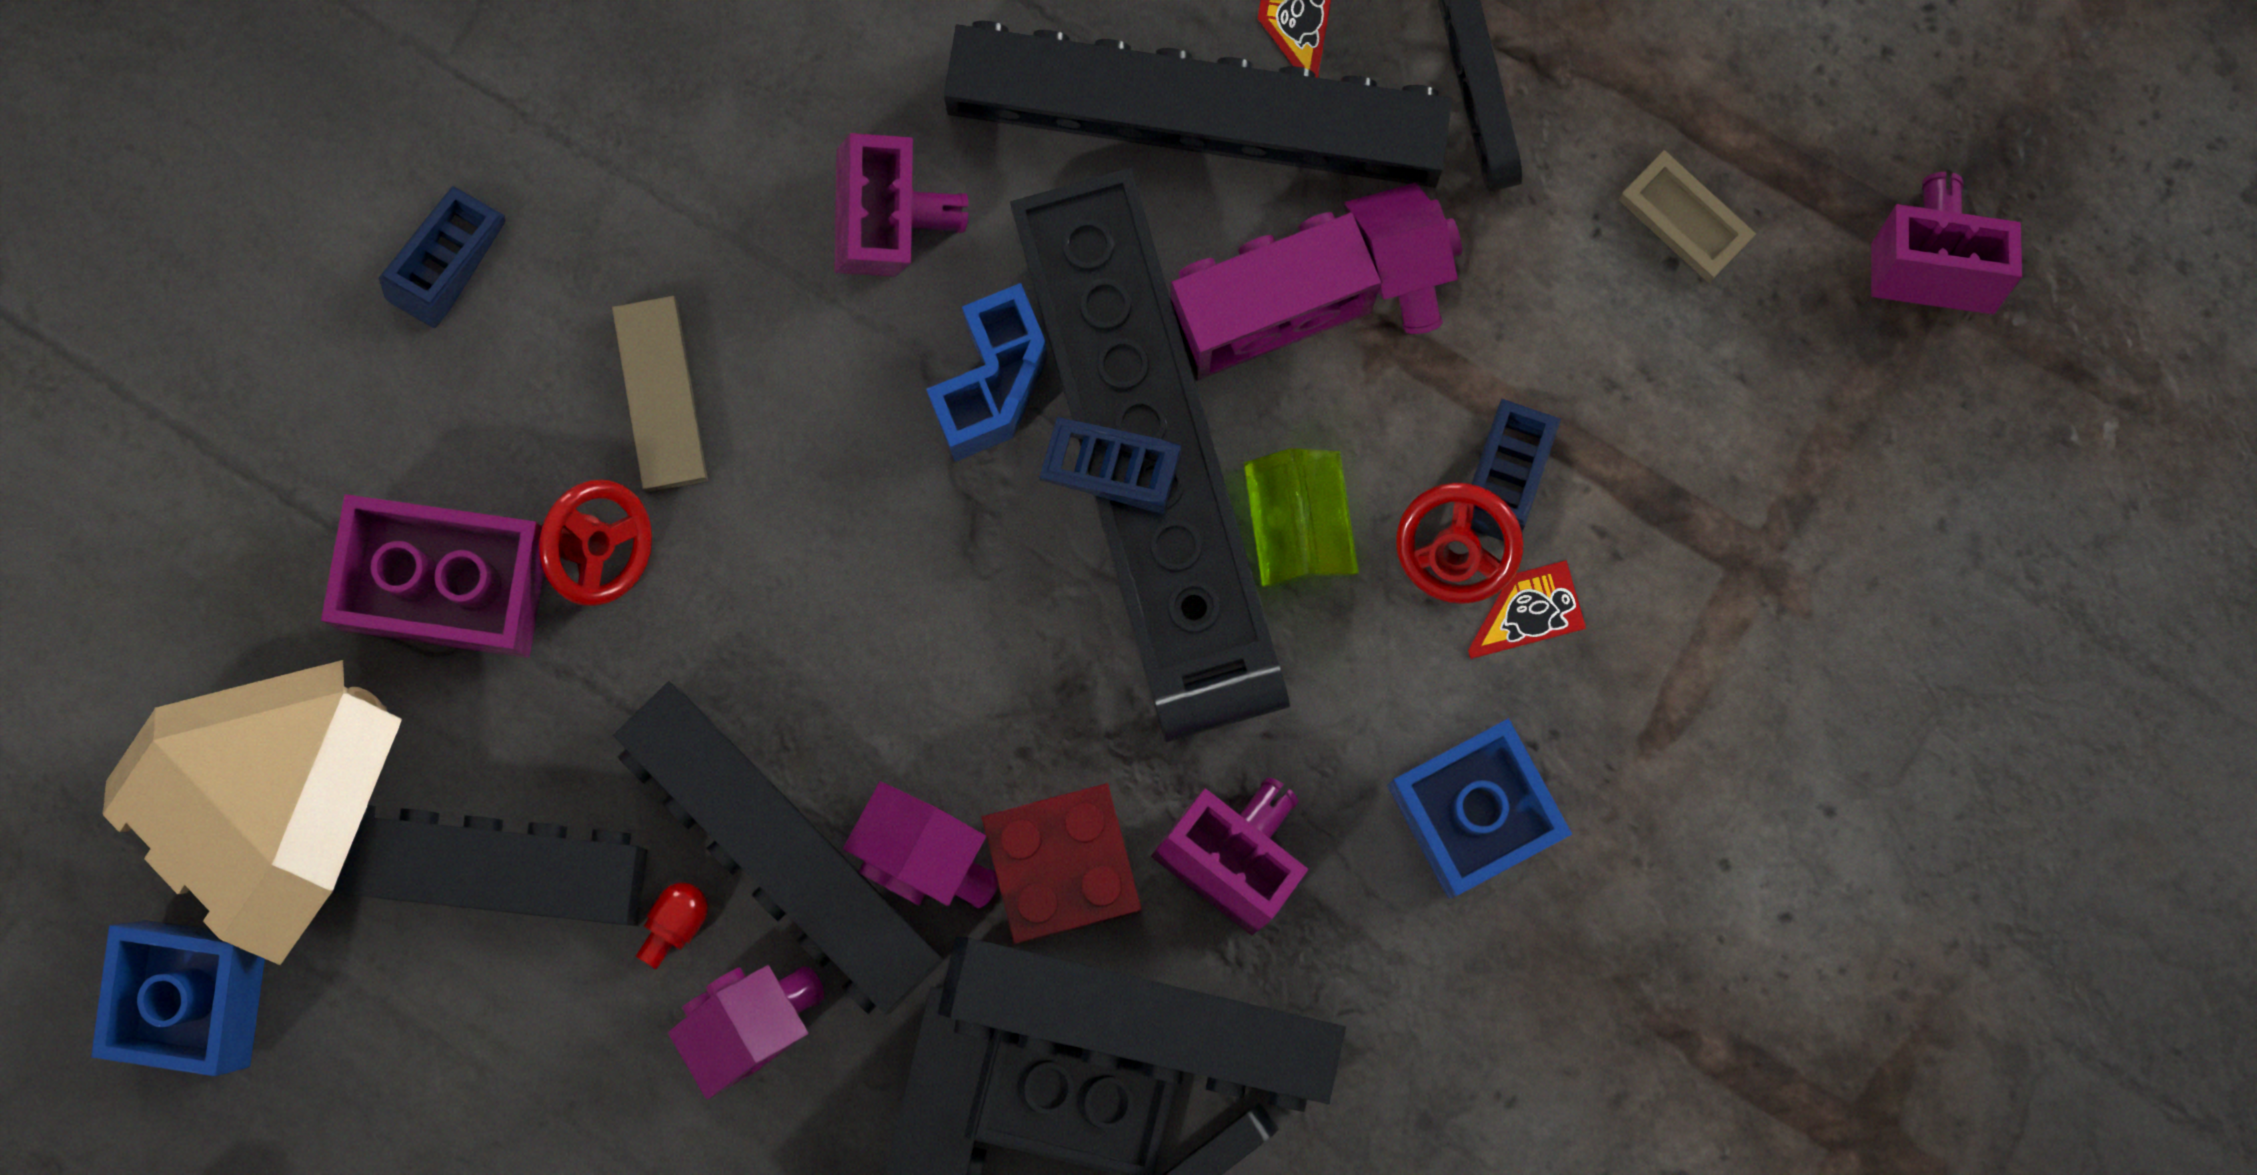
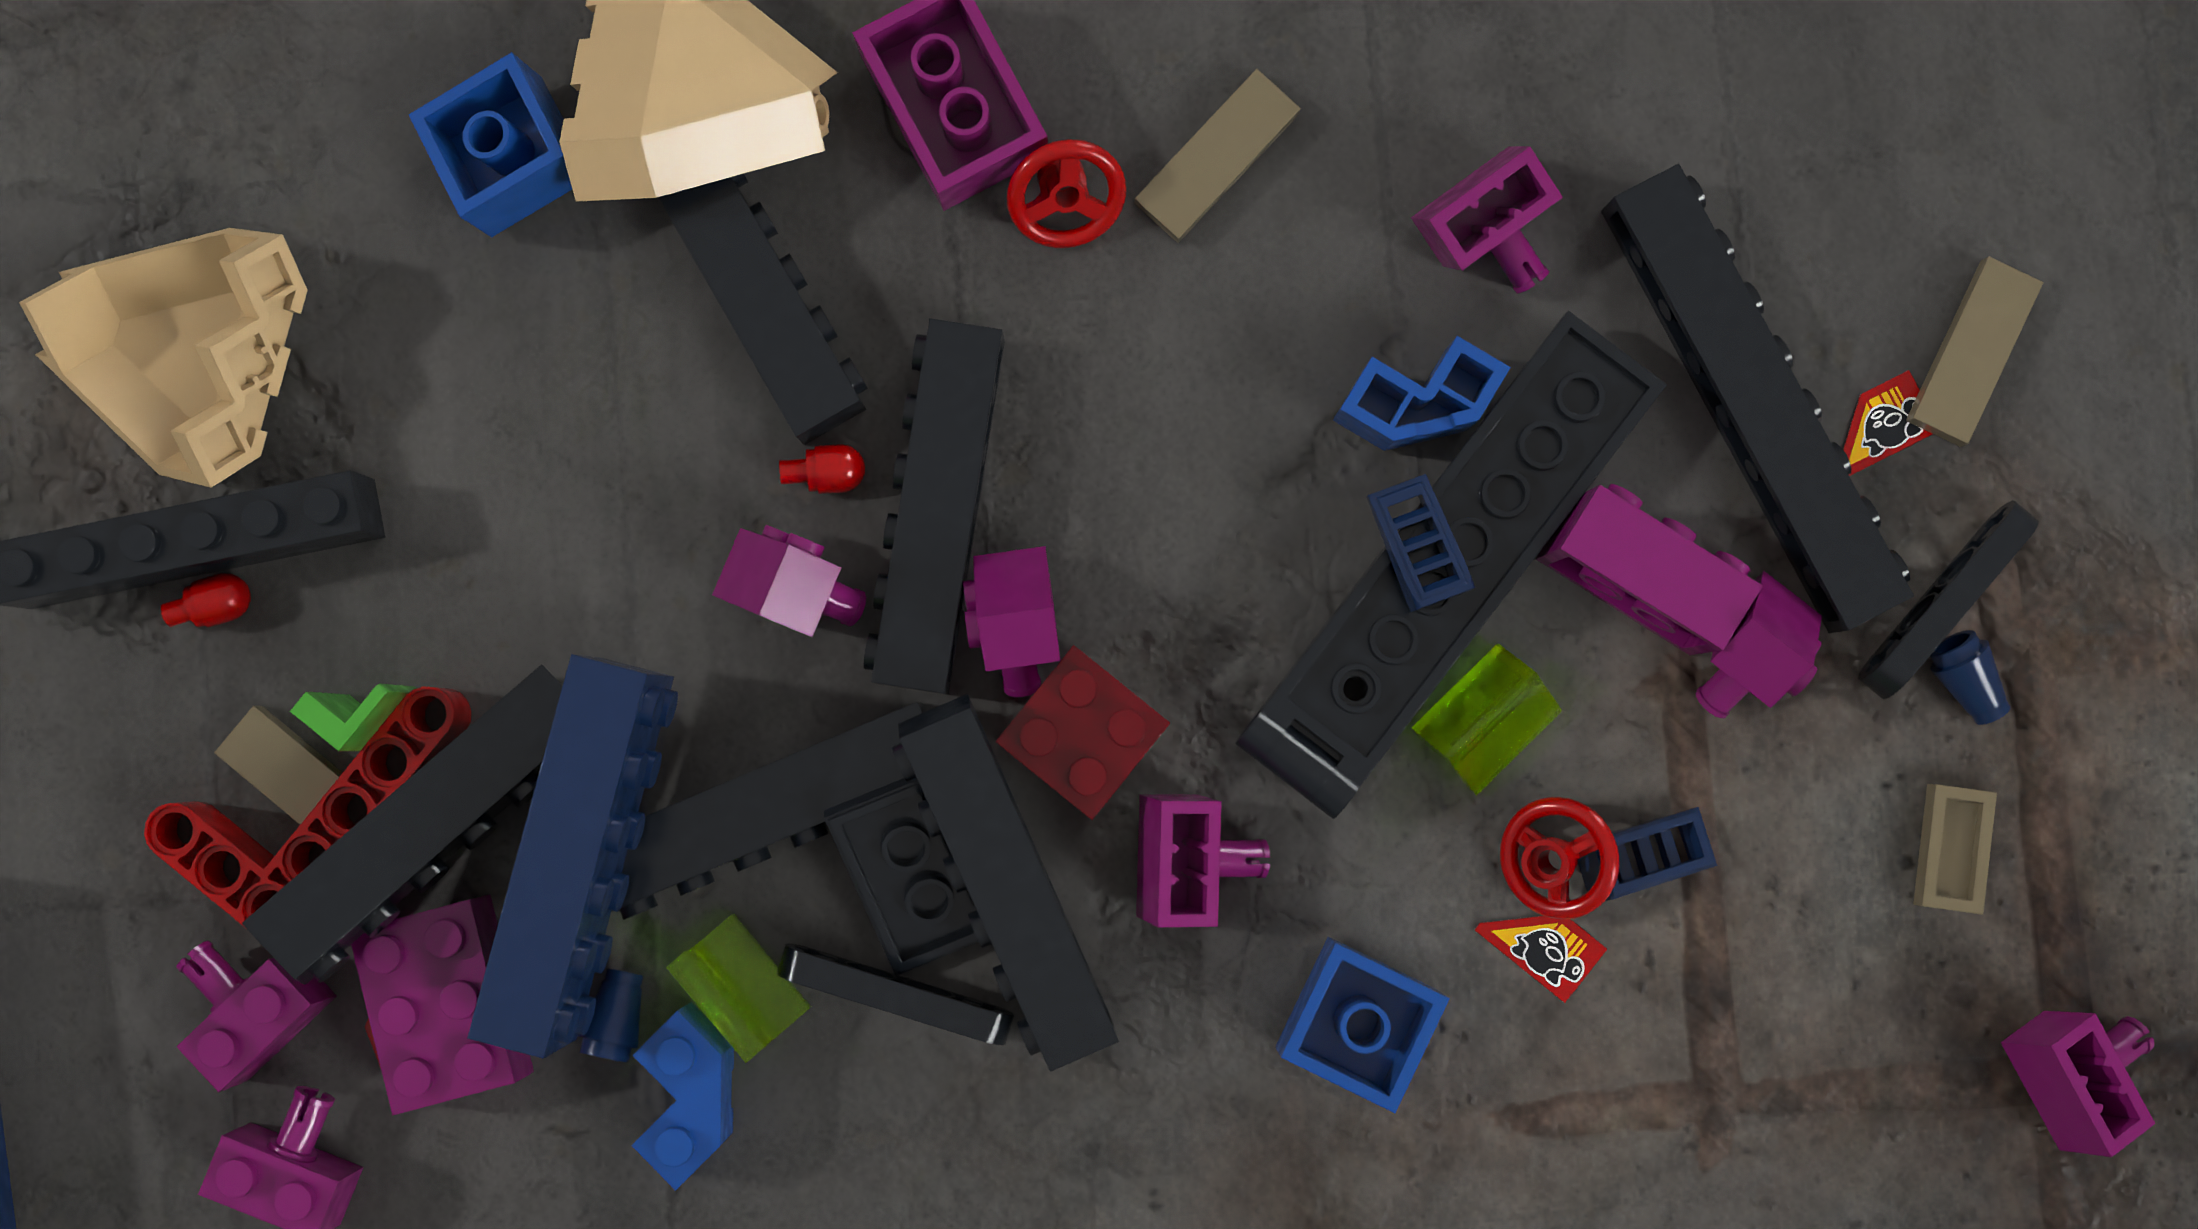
camera: 55 degrees right, 5 degrees up
(1553, 100) = (1971, 676): none -> dark blue cone

